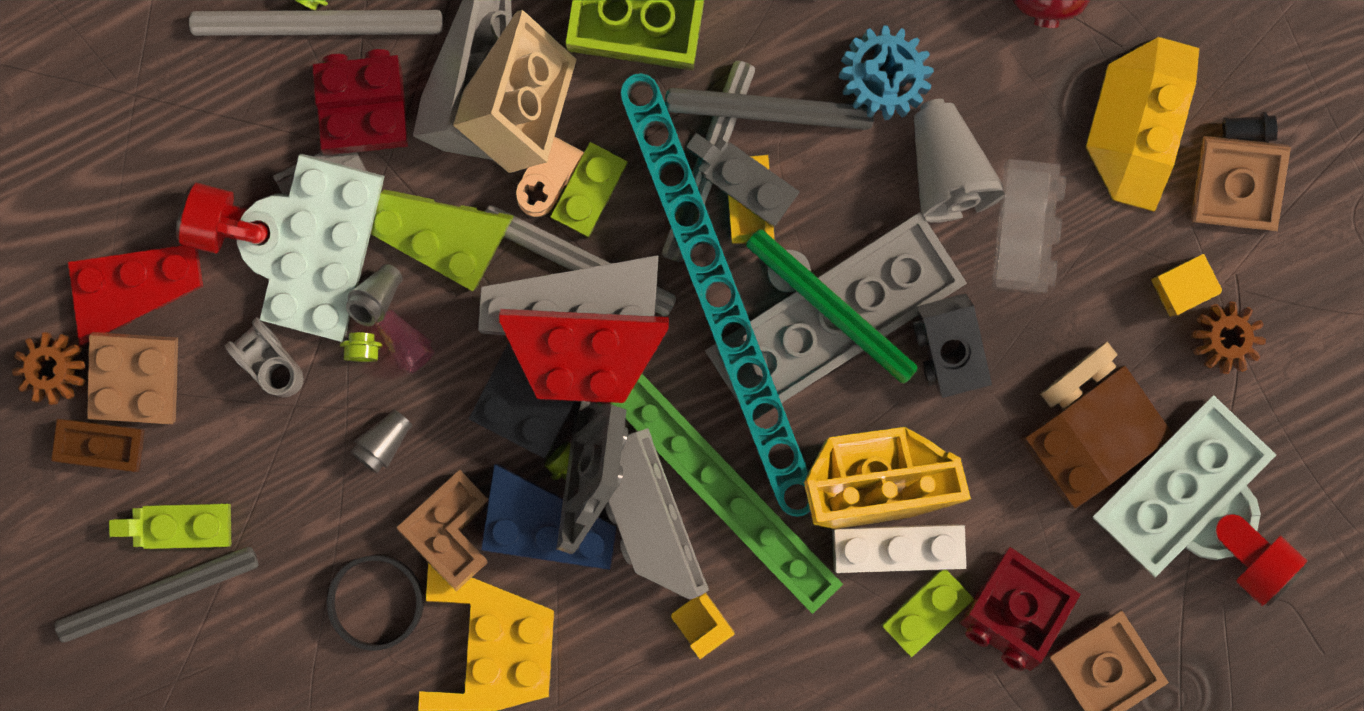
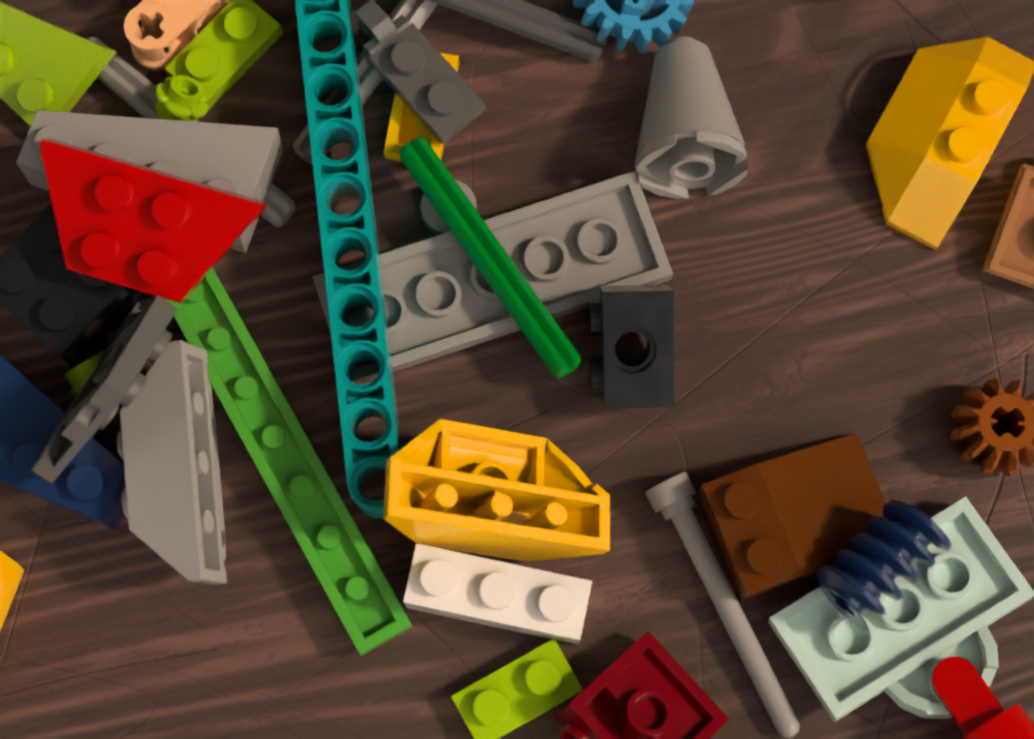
camera: 10 degrees right, 10 degrees down
(573, 242) = (181, 99): none -> lime plate
(702, 624) = (212, 634): yellow panel -> none
(1007, 449) = (676, 503): none -> light grey piece
(1028, 227) = (769, 224): clear brick -> none
(1066, 387) = (817, 419): tan plate -> none
(1163, 461) = (879, 559): none -> dark blue piece
(1187, 285) = (959, 345): yellow panel -> none

